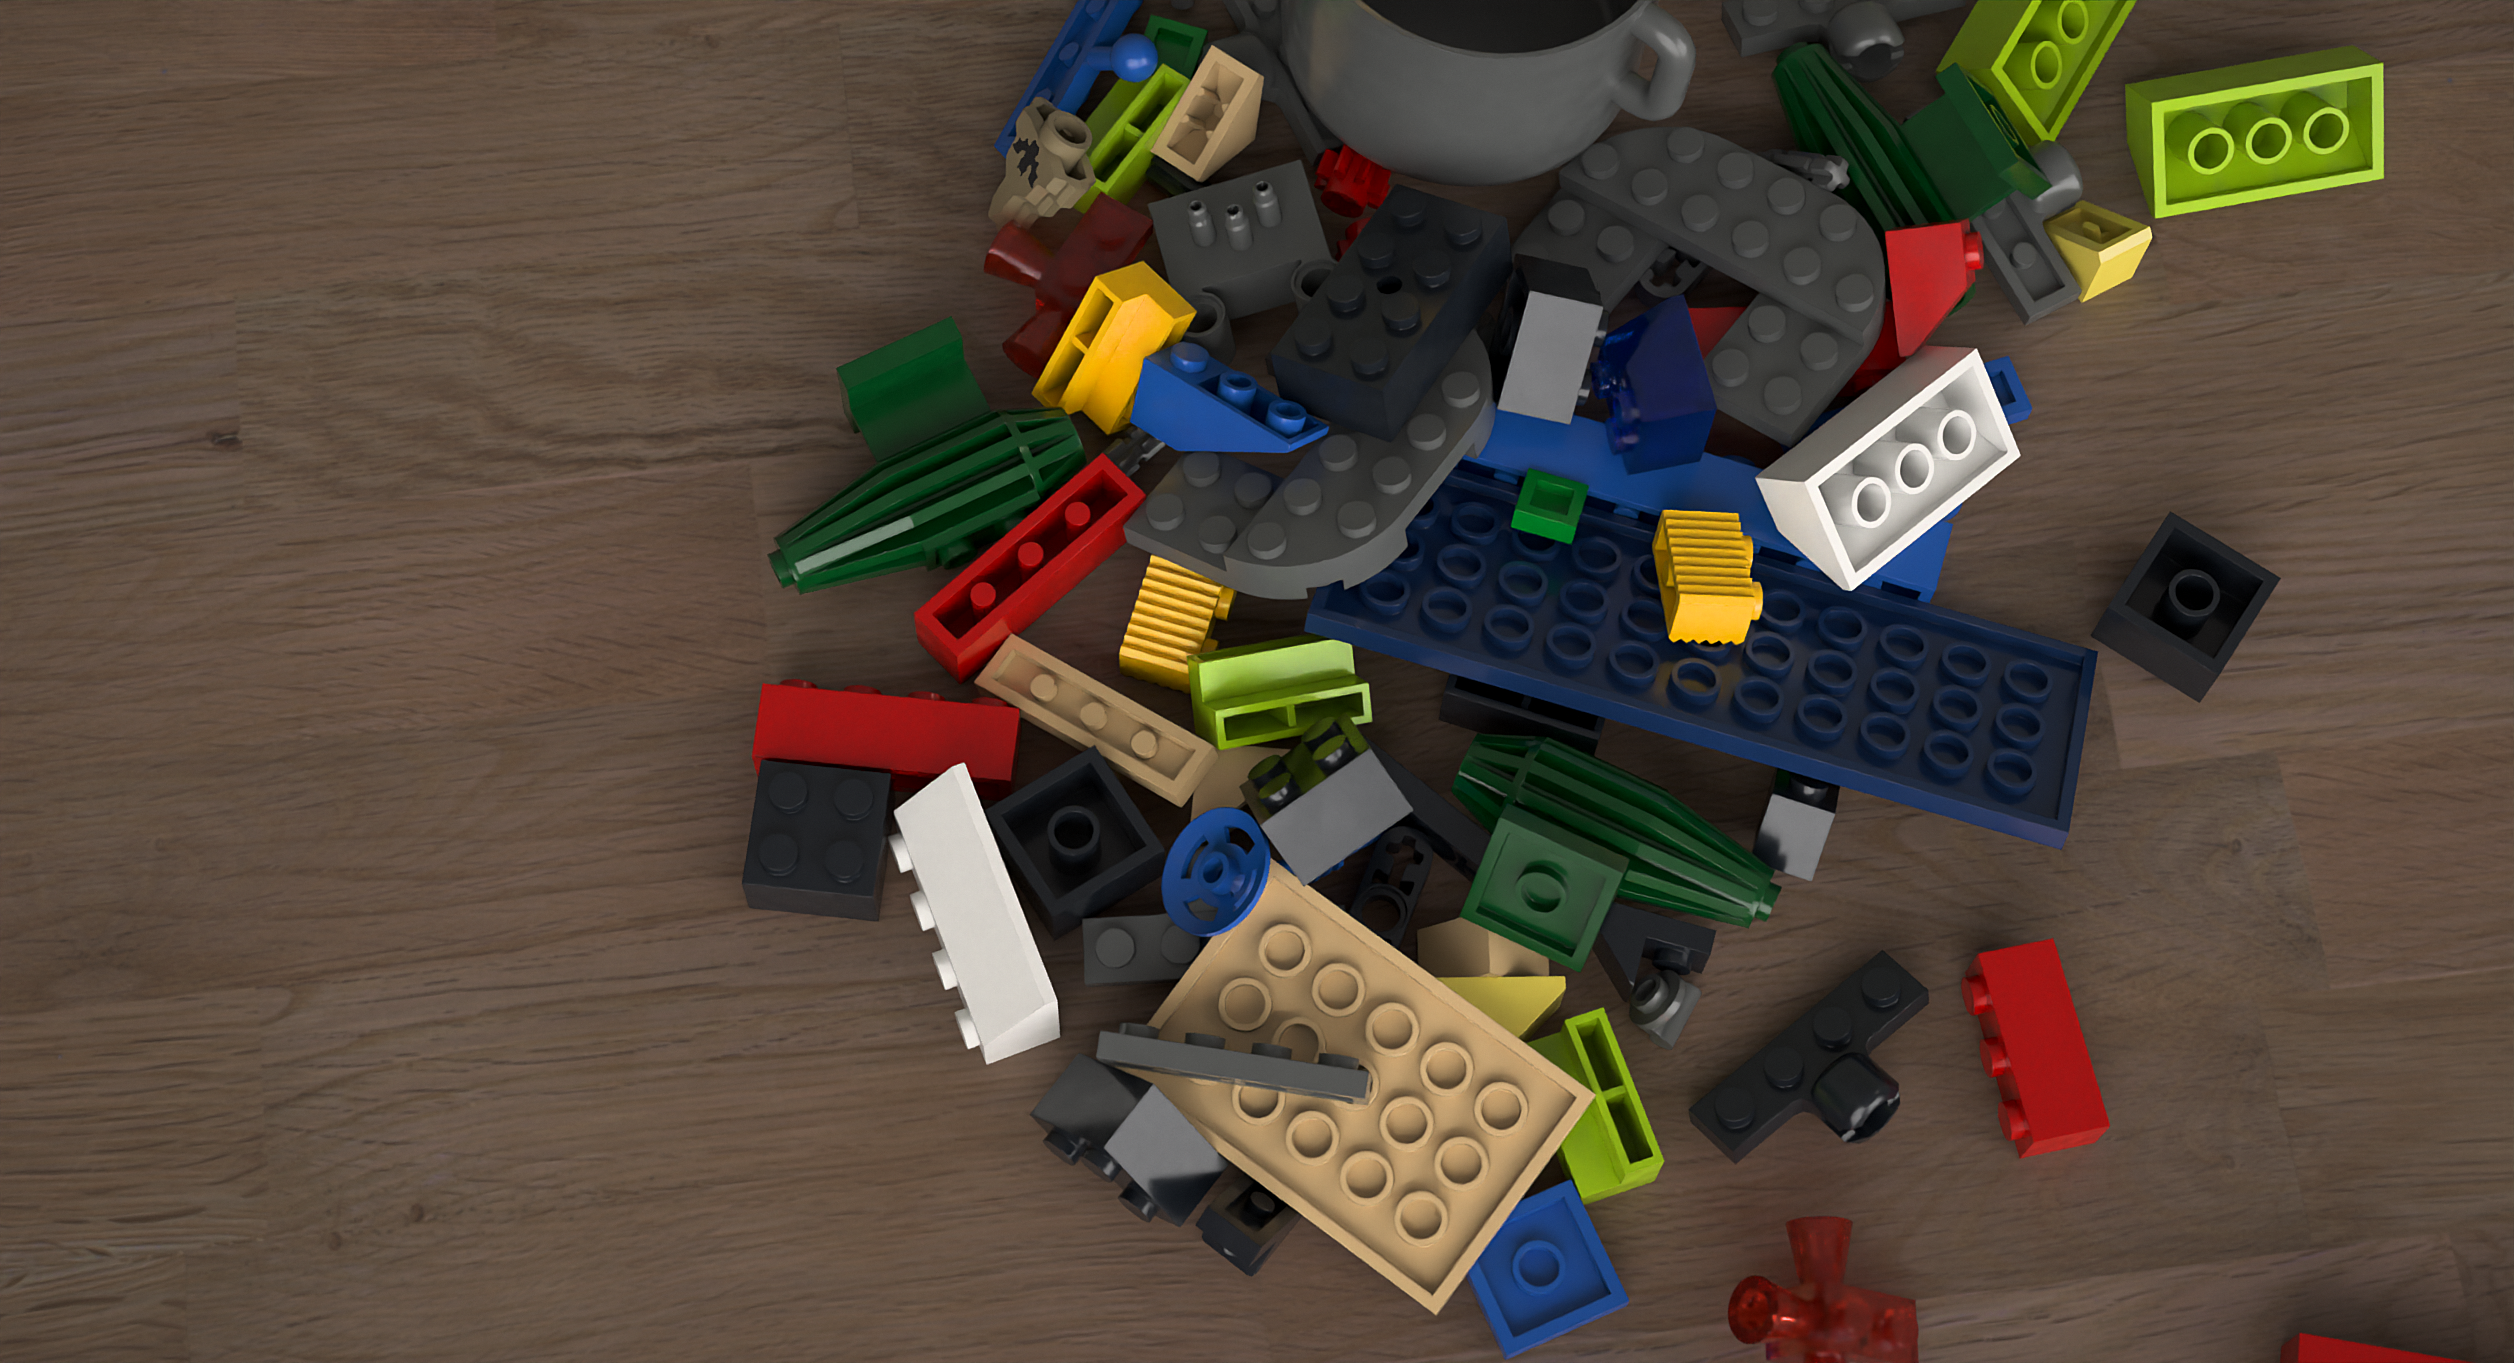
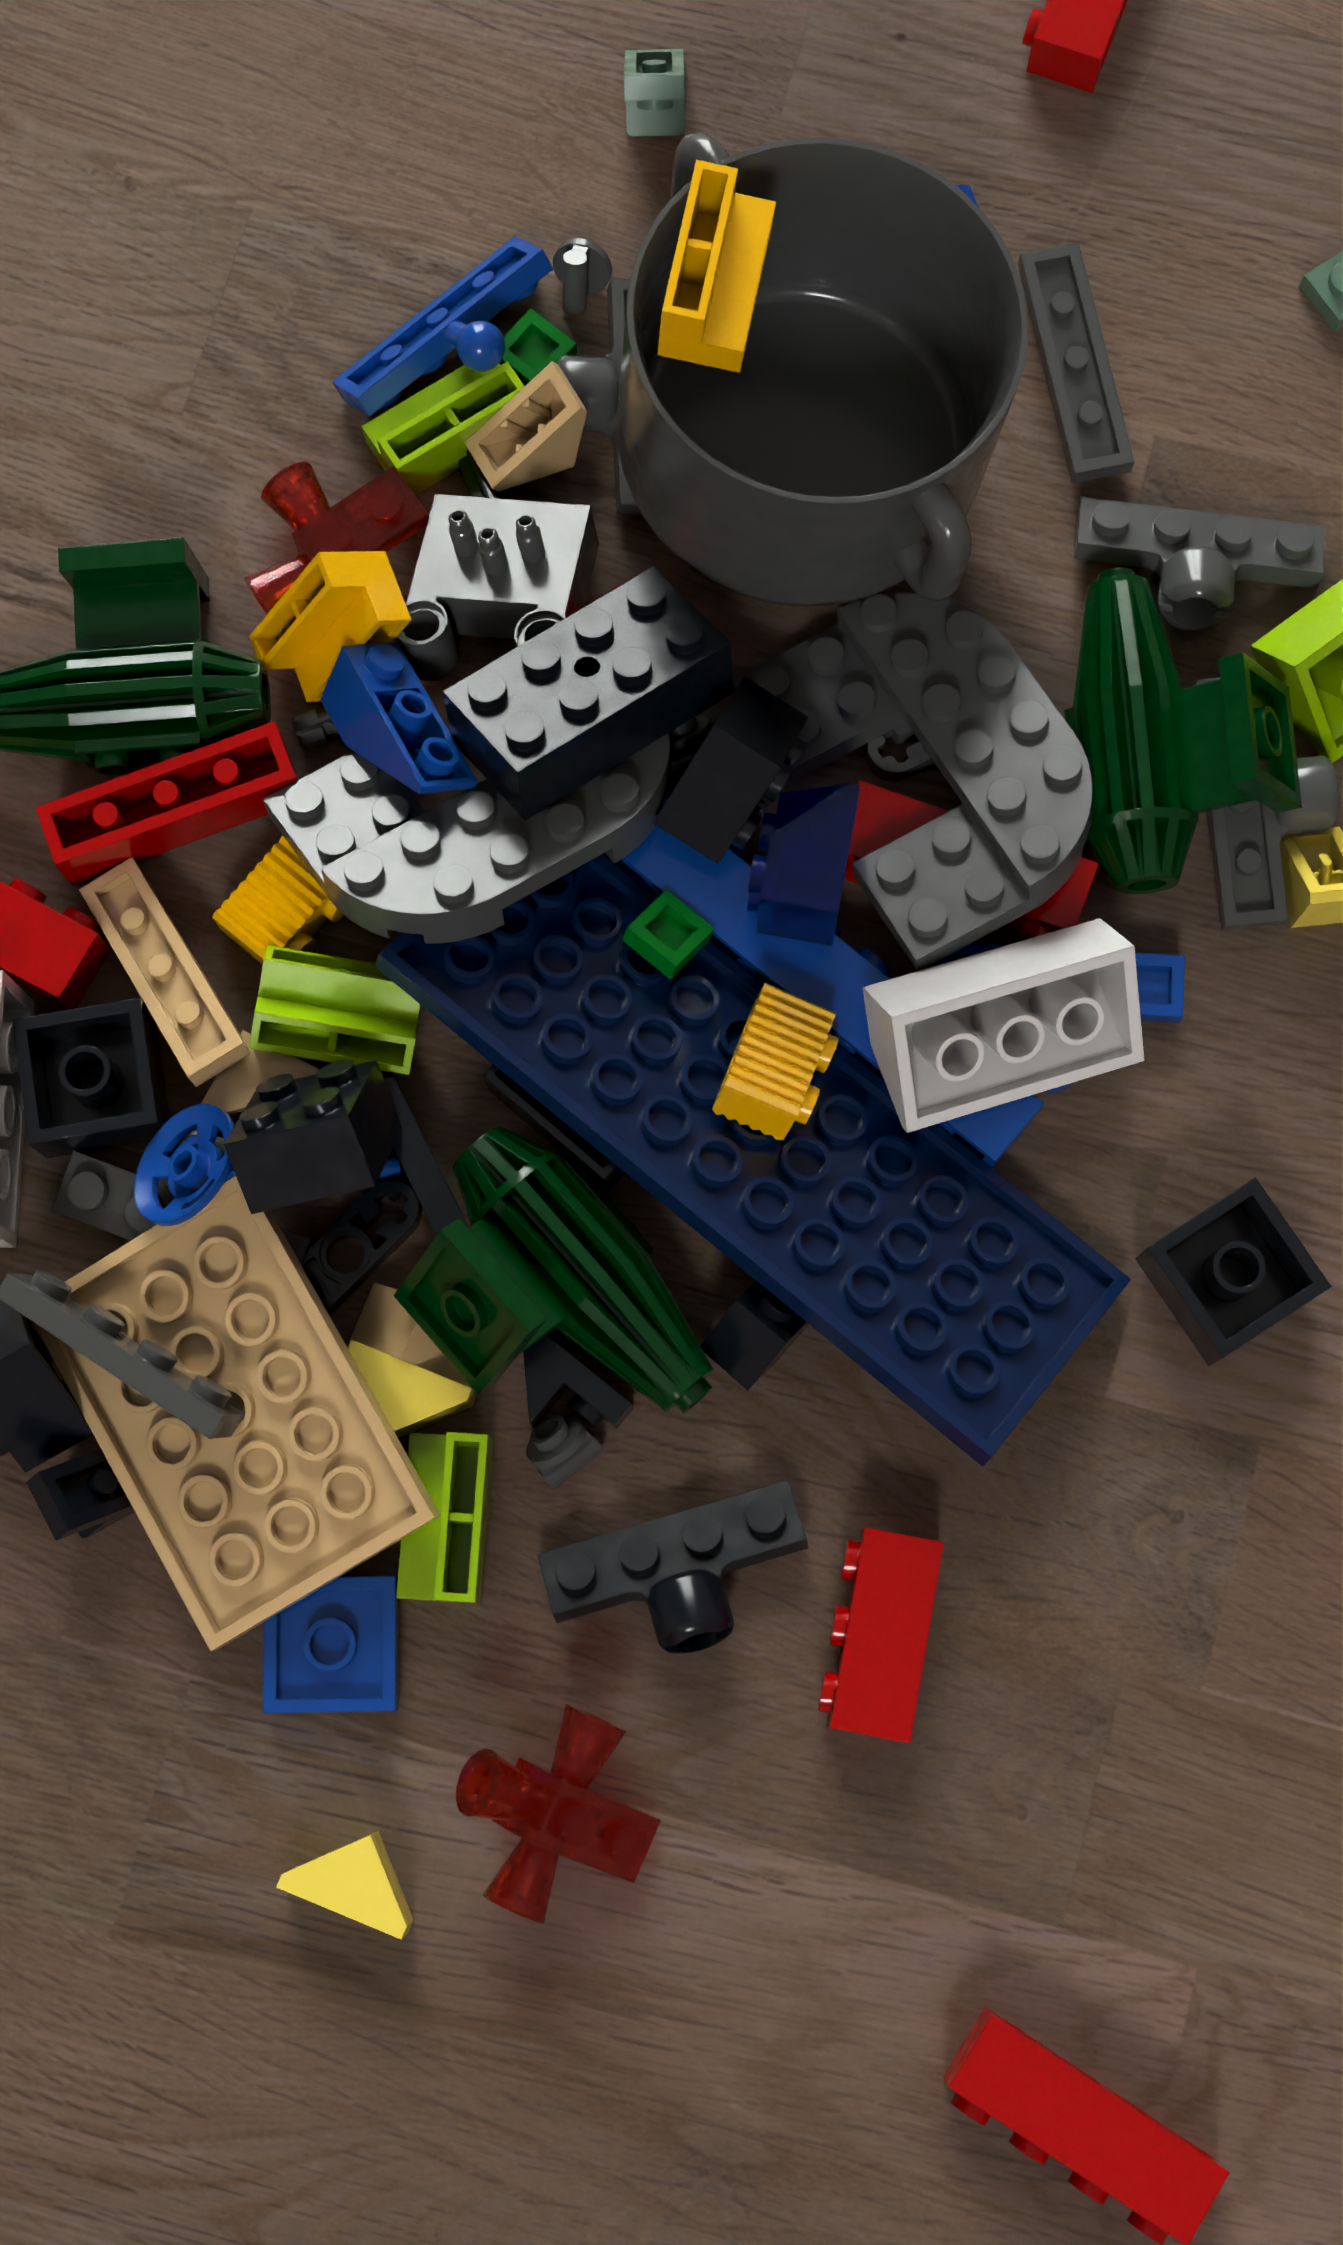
camera: 30 degrees right, 10 degrees up
(1043, 166) = (351, 418): dark tan rock -> none
(1351, 182) = (635, 544): red gear -> none
(1822, 171) = (1074, 704): dark grey axle -> none
(1929, 275) = (1125, 852): red slope -> none

